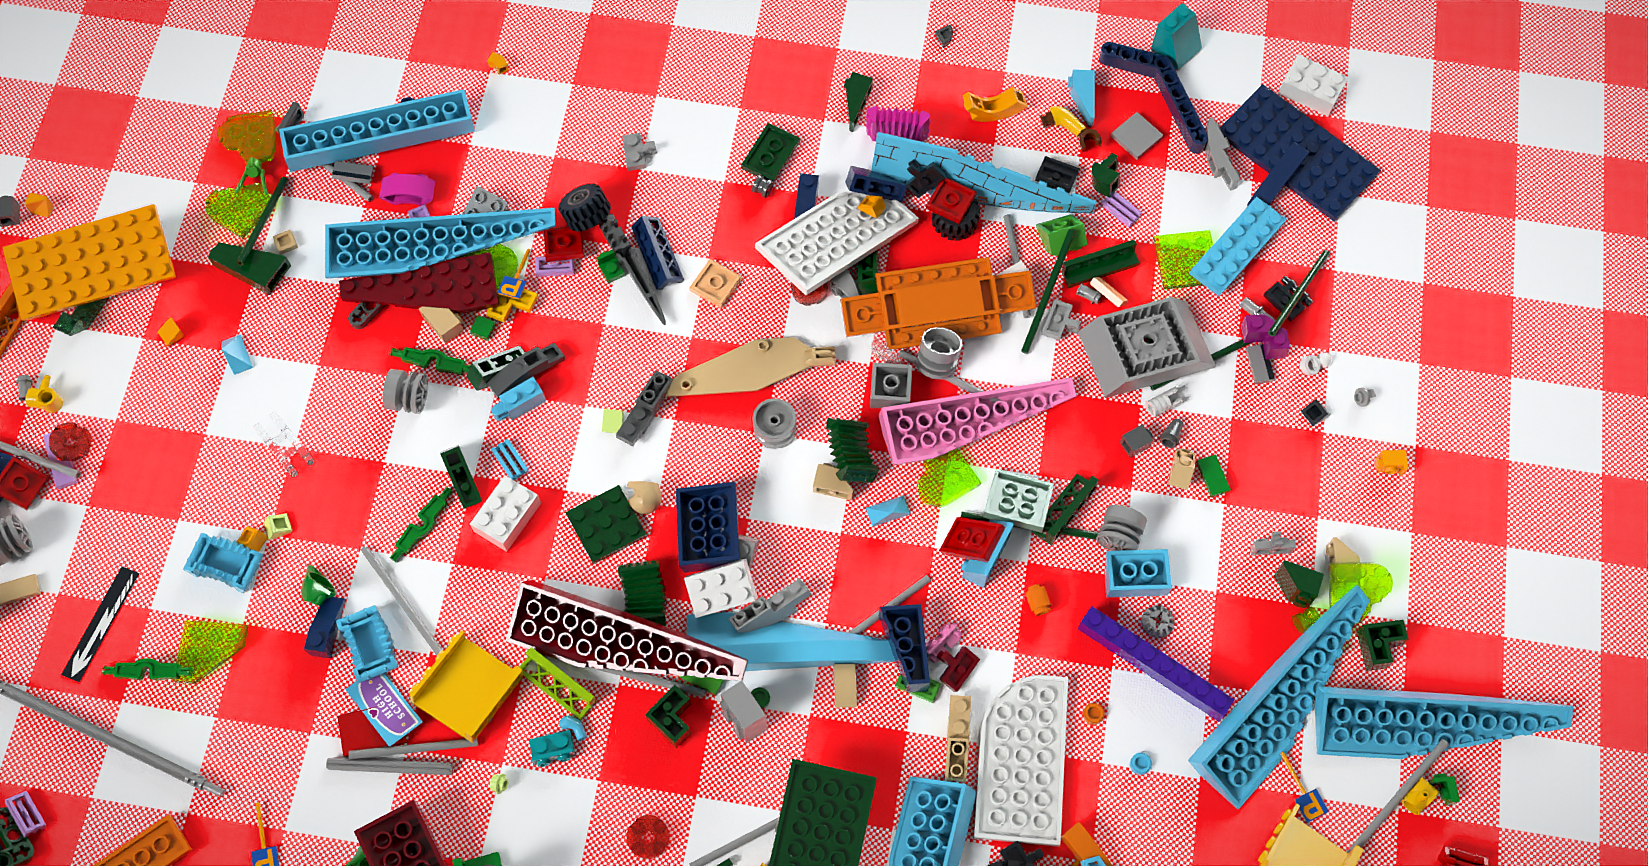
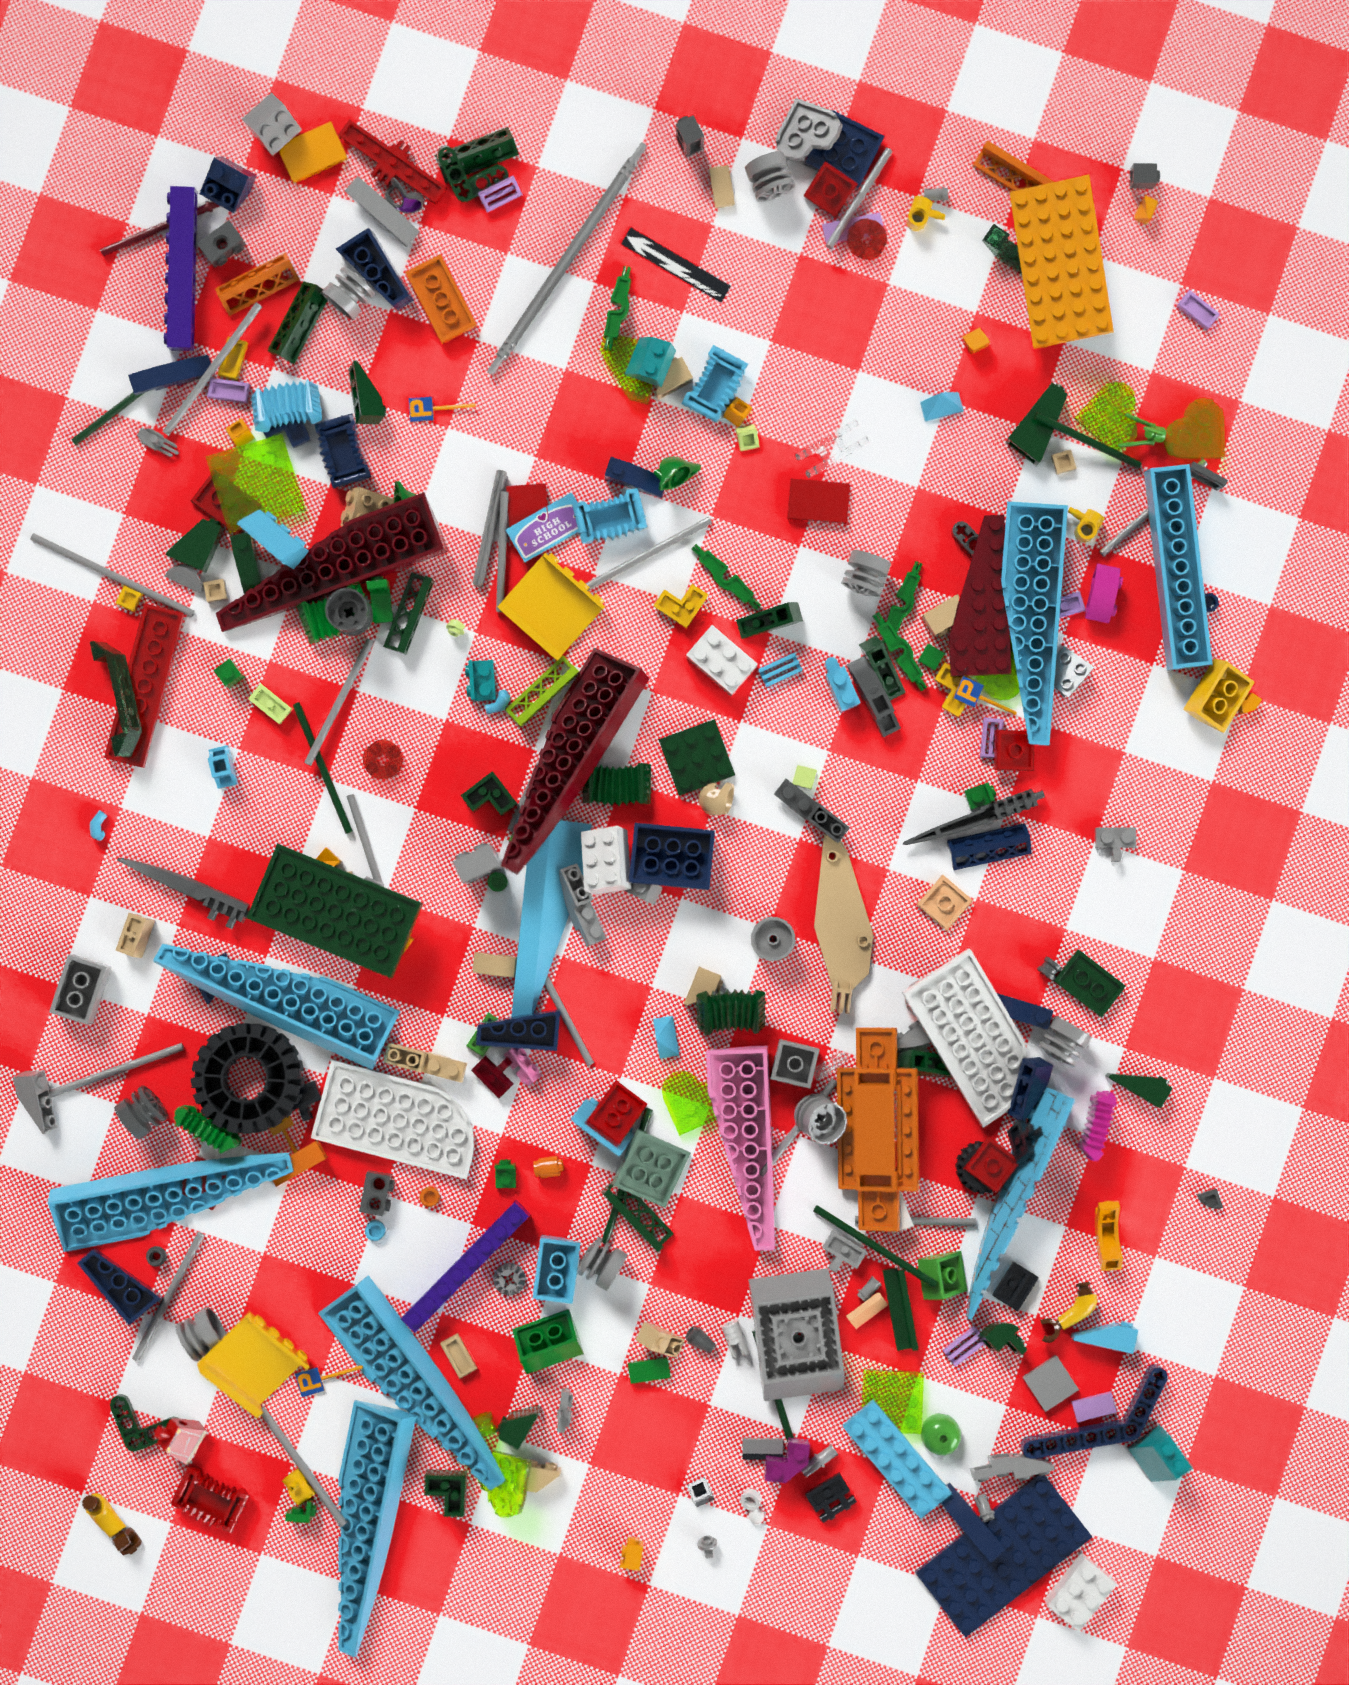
camera: 100 degrees right, 20 degrees up
(135, 151) = (1198, 310): none -> lavender tile
(200, 625) = (651, 360): none -> teal slope
(217, 604) = (676, 378): none -> tan slope
(337, 450) = (818, 501): none -> red tile
(339, 209) = (1090, 519): none -> yellow piece
(352, 172) = (1134, 537): light grey tile -> none
(458, 561) = (681, 610): none -> yellow plate
(488, 348) = (893, 642): none -> green piece
(491, 828) = (414, 618): none -> dark green fence
(492, 85) = (1219, 695): none -> yellow slope
(584, 207) = (1047, 777): black wheel -> none
(828, 161) = (1065, 1041): none -> light grey wheel
(872, 206) = (1003, 1080): light orange slope -> none
(1054, 641) = (505, 1174): none -> green bracket
(1103, 772) = (371, 1191): none -> dark grey brick
(1136, 441) = (697, 1301): dark grey brick -> none
(1148, 99) = (1093, 1406): none -> lavender tile
(1206, 214) = (937, 1426): none -> bright green cylinder
(1209, 572) = (547, 1341): none -> green slope
(1245, 658) = (458, 1355): none -> tan tile
(1262, 170) = (984, 1508): none -> light grey pin
(1298, 293) = (829, 1508): piece -> none

